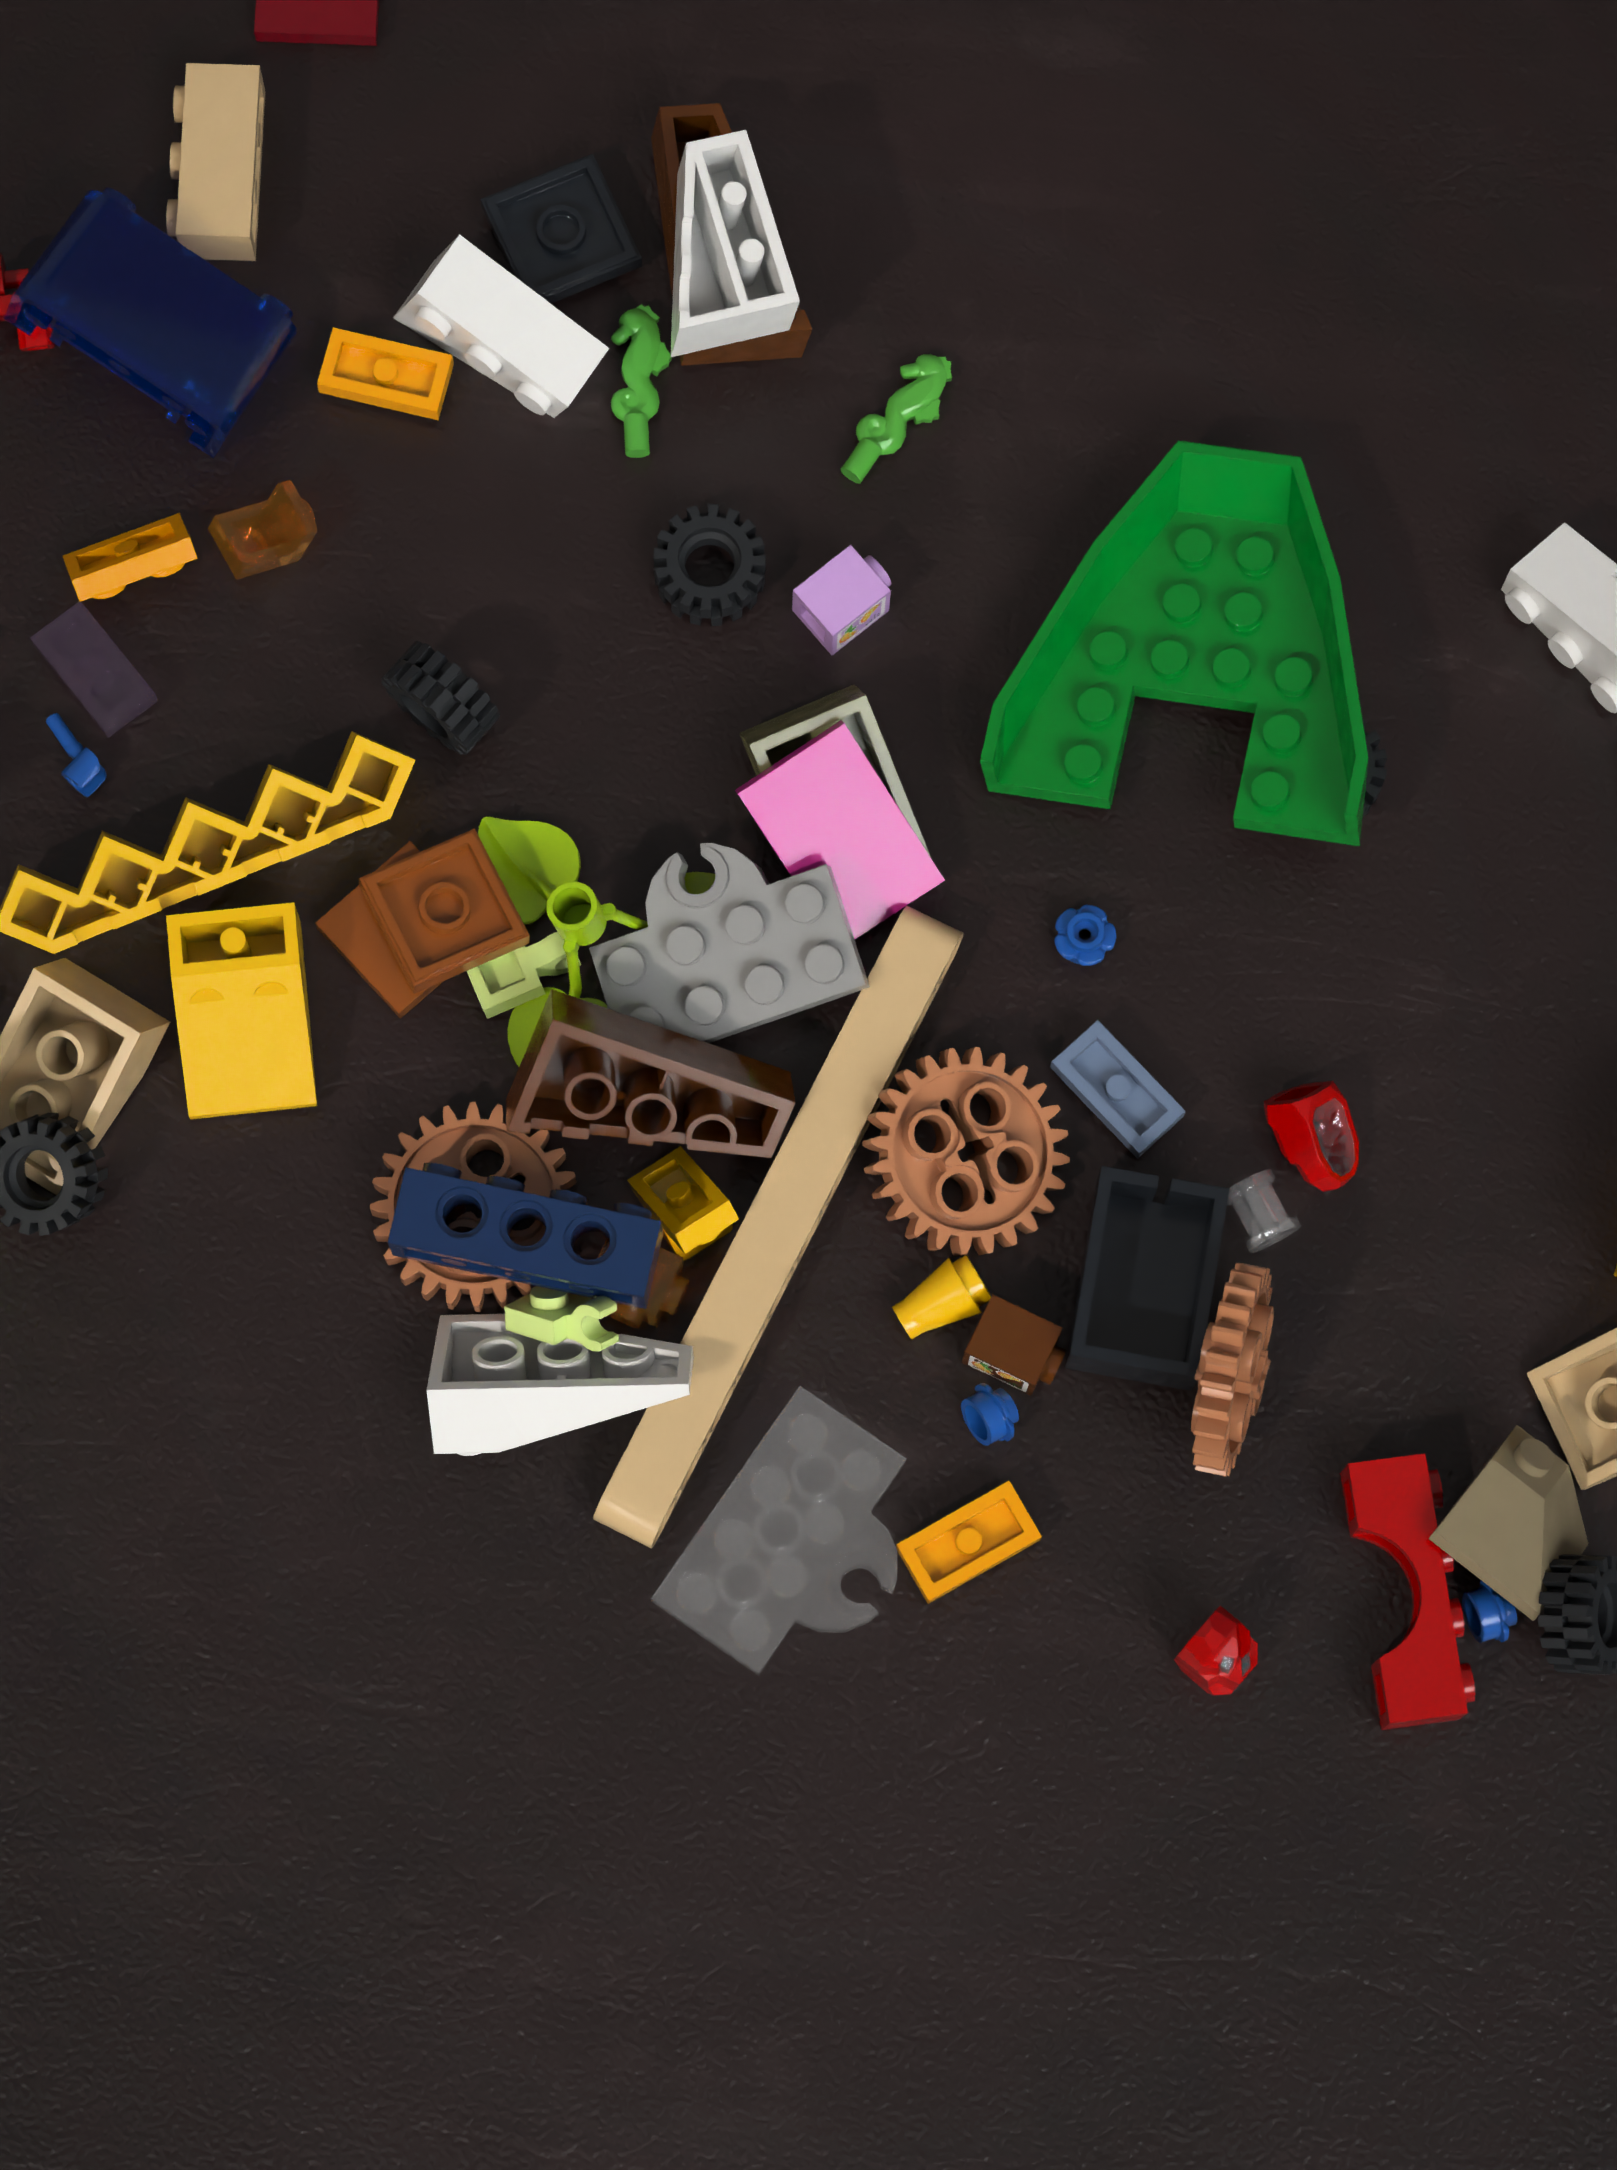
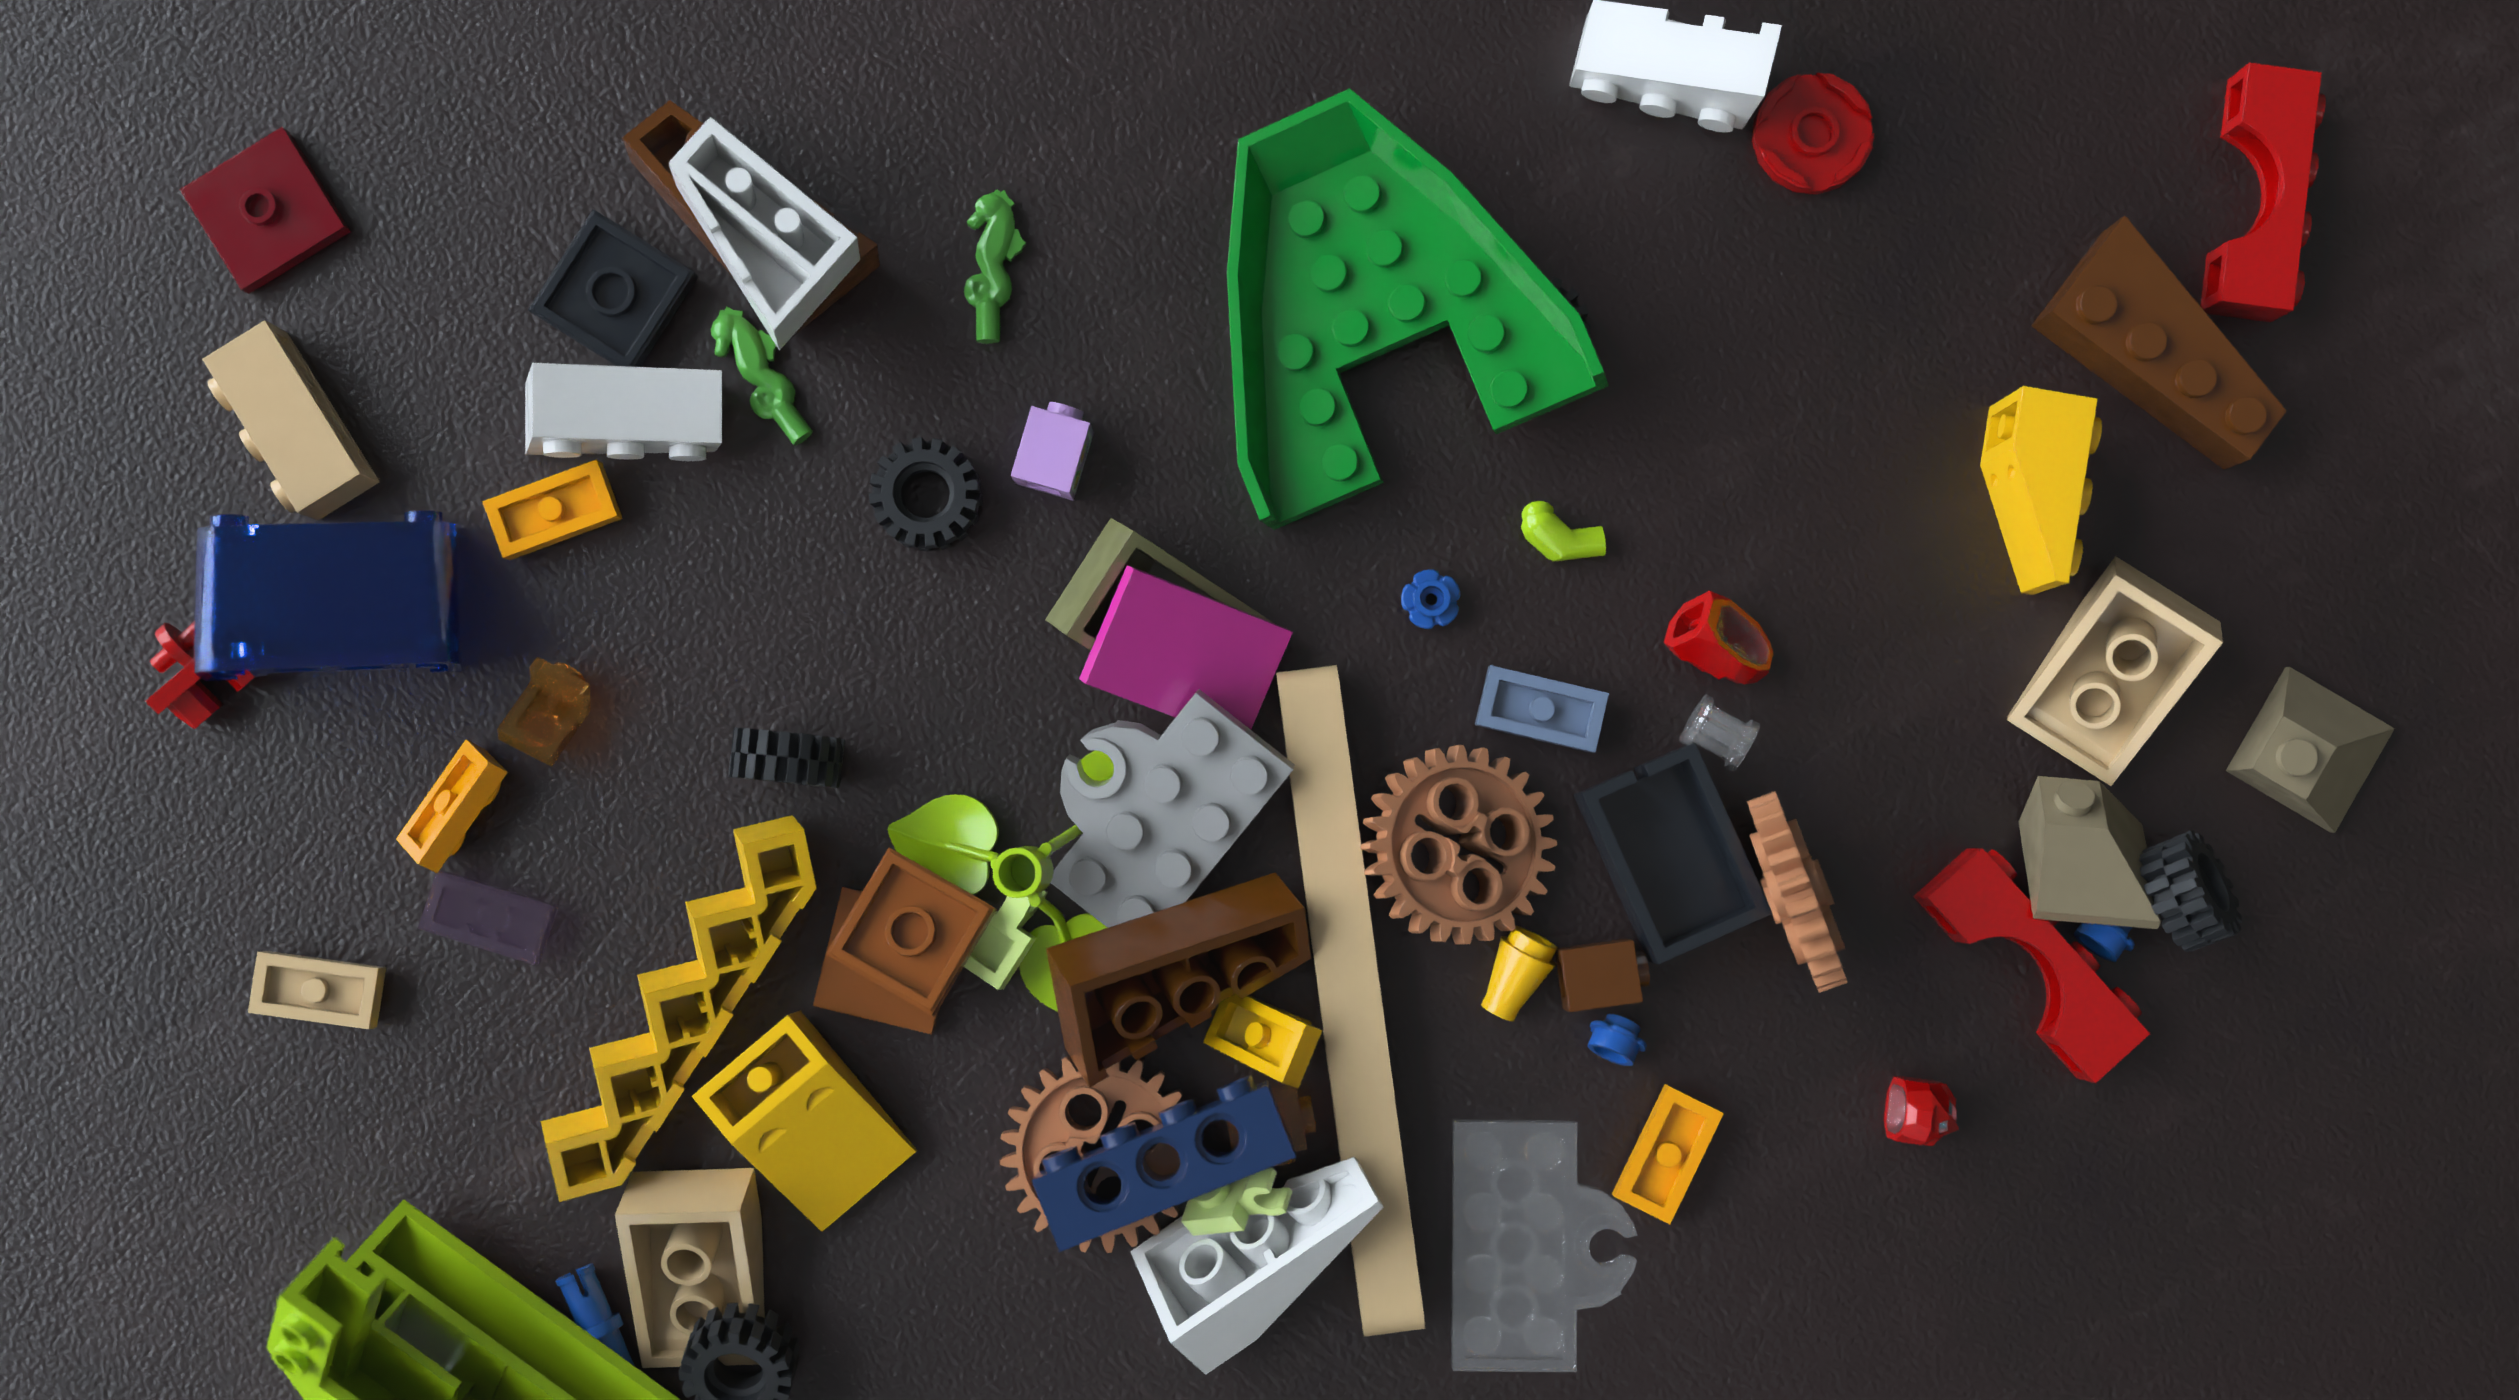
camera: 30 degrees left, 10 degrees up
(85, 769) = (540, 1003): blue hand -> none
(1229, 957) = (1556, 539): none -> lime arm

